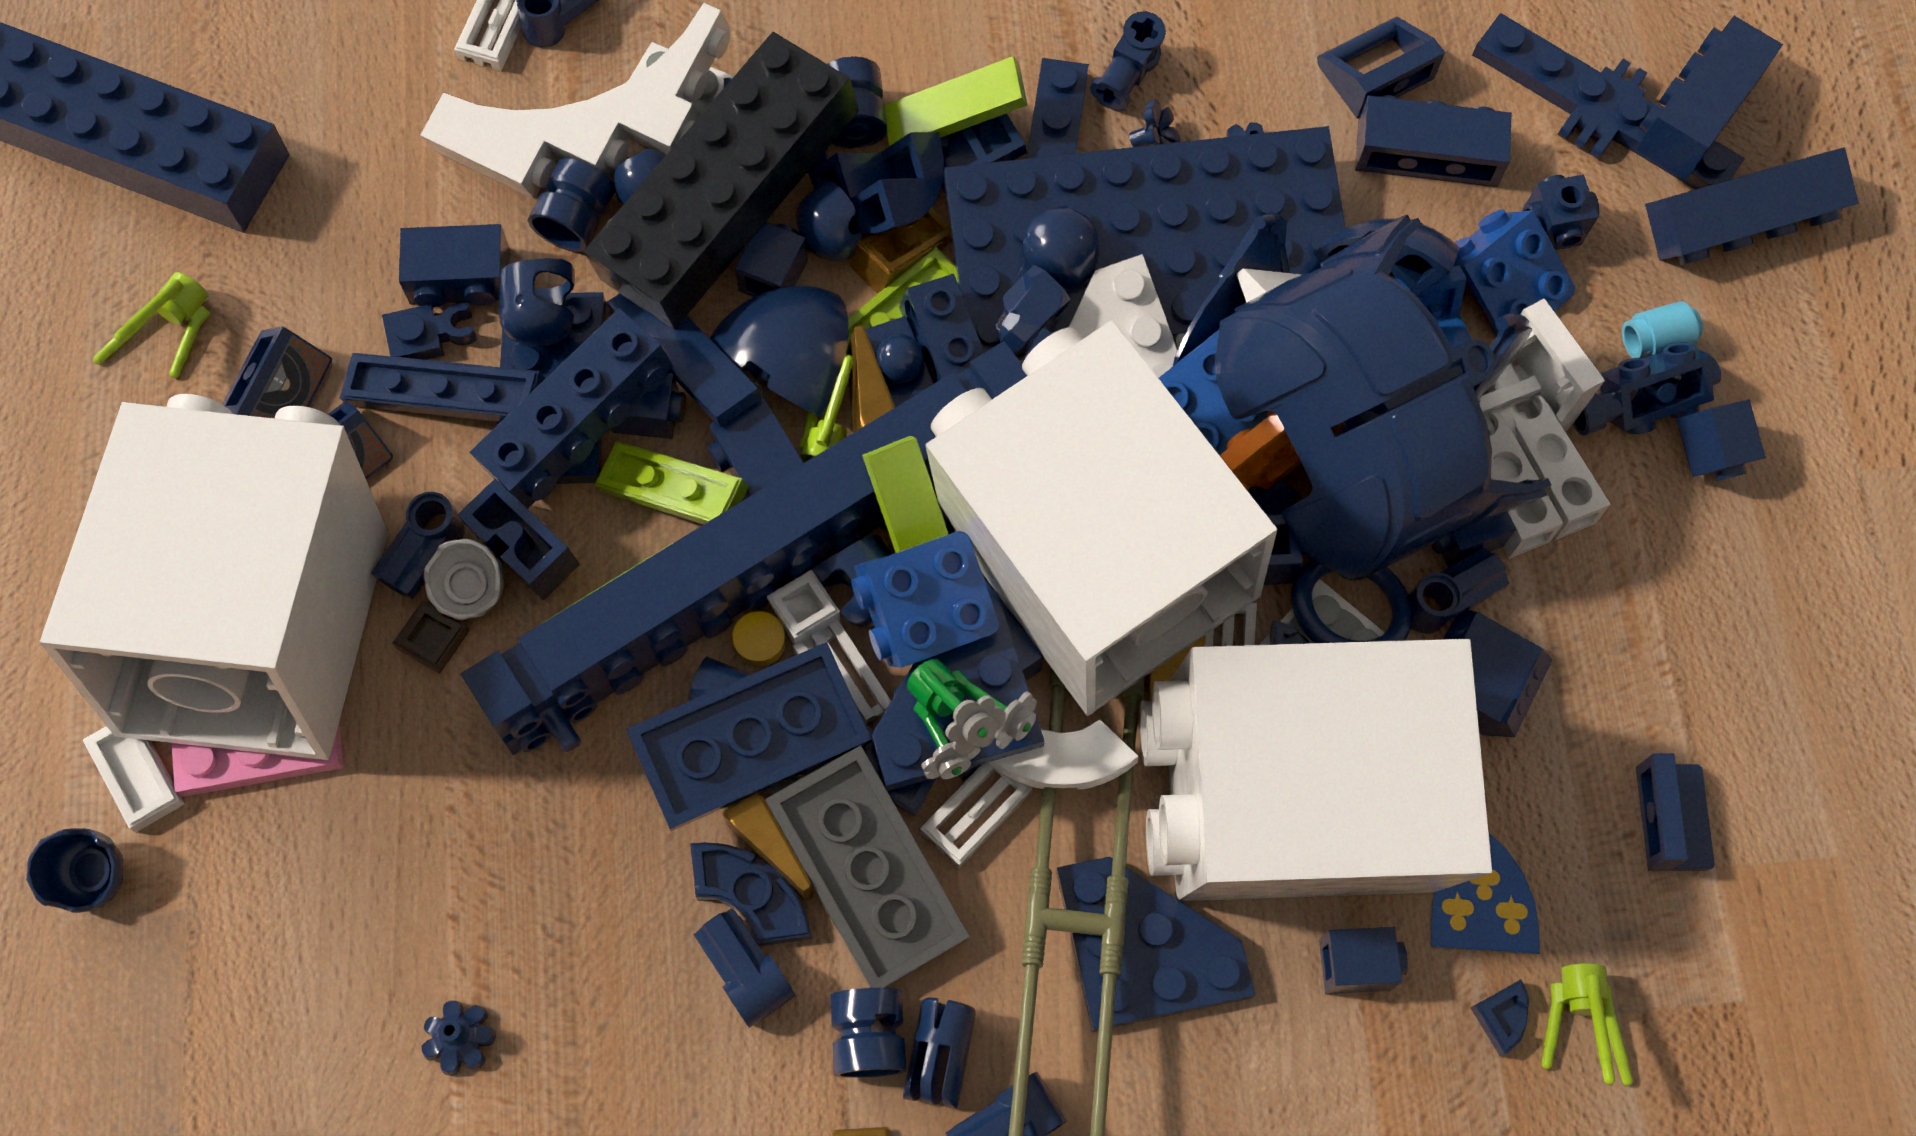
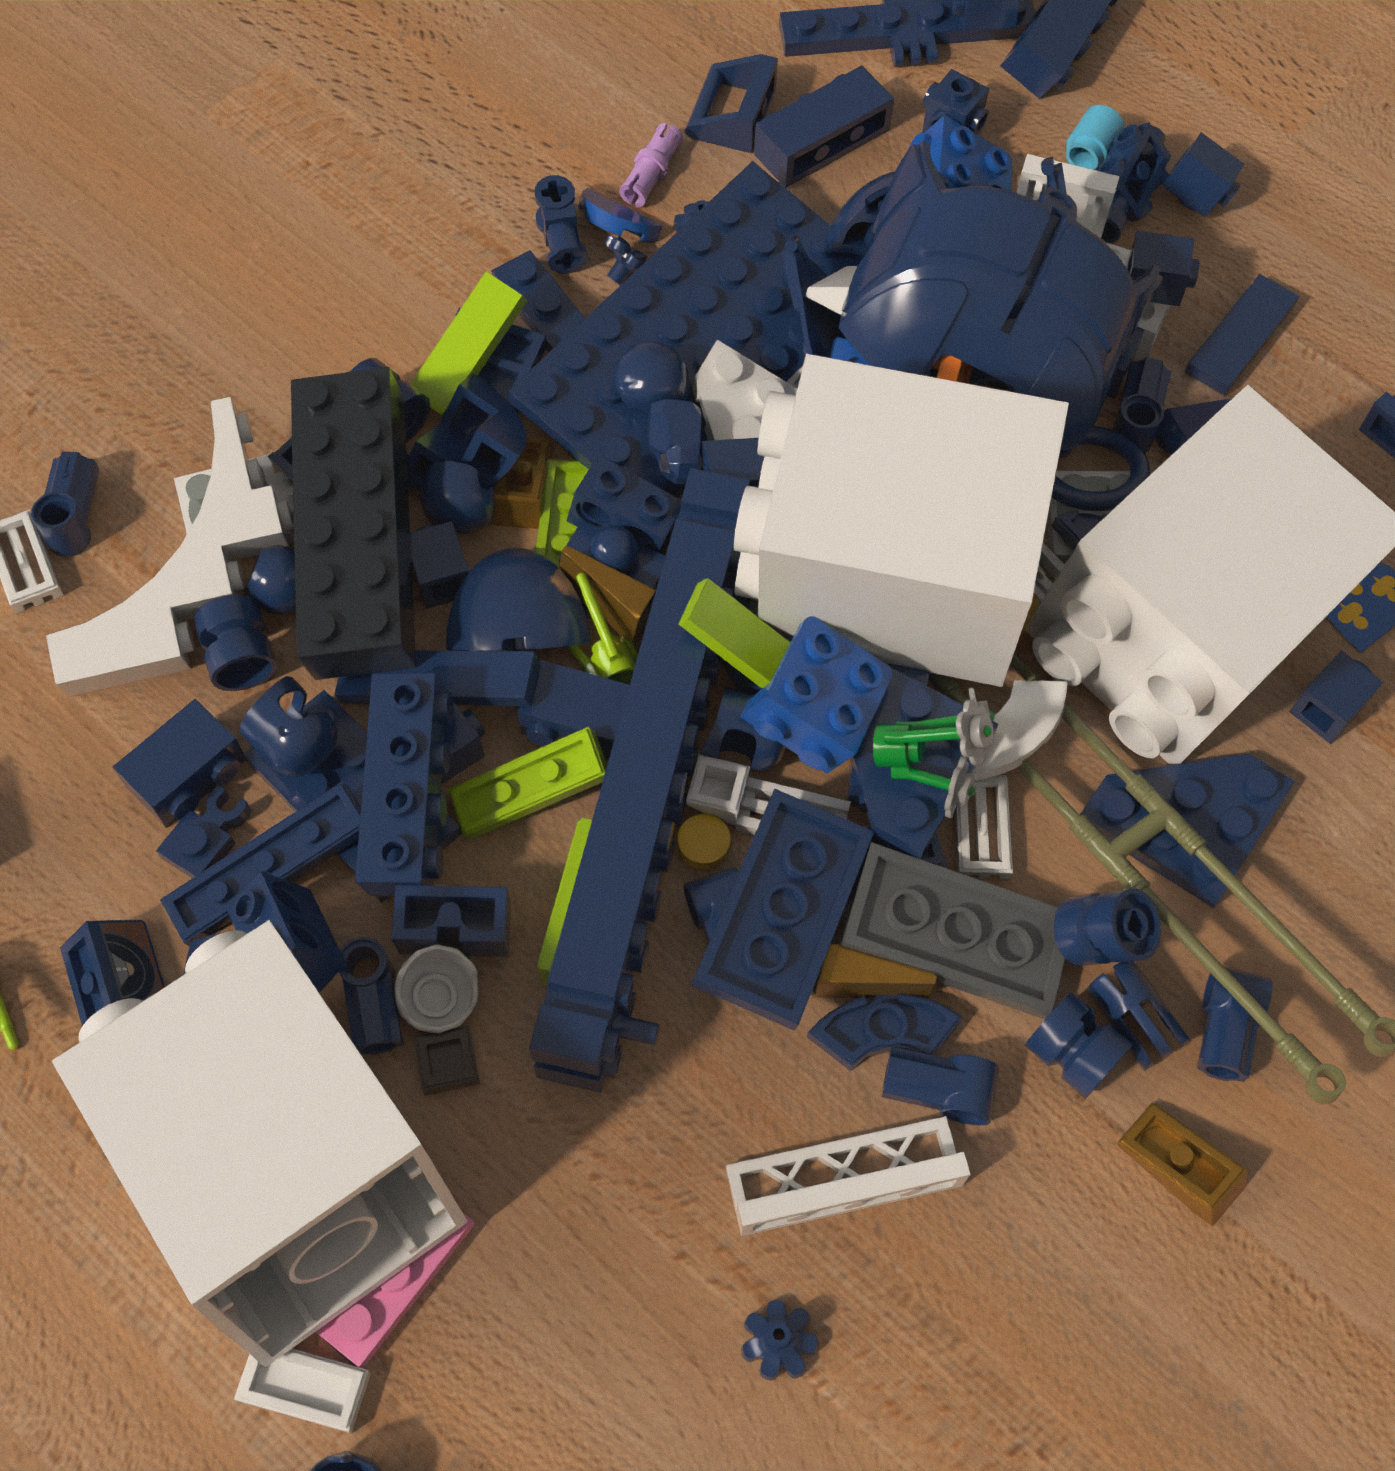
camera: 40 degrees left, 5 degrees down
(400, 448) = (297, 921): none -> dark blue brick
(604, 986) = (855, 1190): none -> white fence
(973, 968) = (1107, 927): none -> dark blue wheel
(1181, 86) = (616, 218): none -> blue tile
(1258, 65) = (651, 165): none -> lavender pin
(1578, 488) = (1175, 263): none -> dark blue brick
(1616, 602) = (1241, 334): none -> dark blue tile

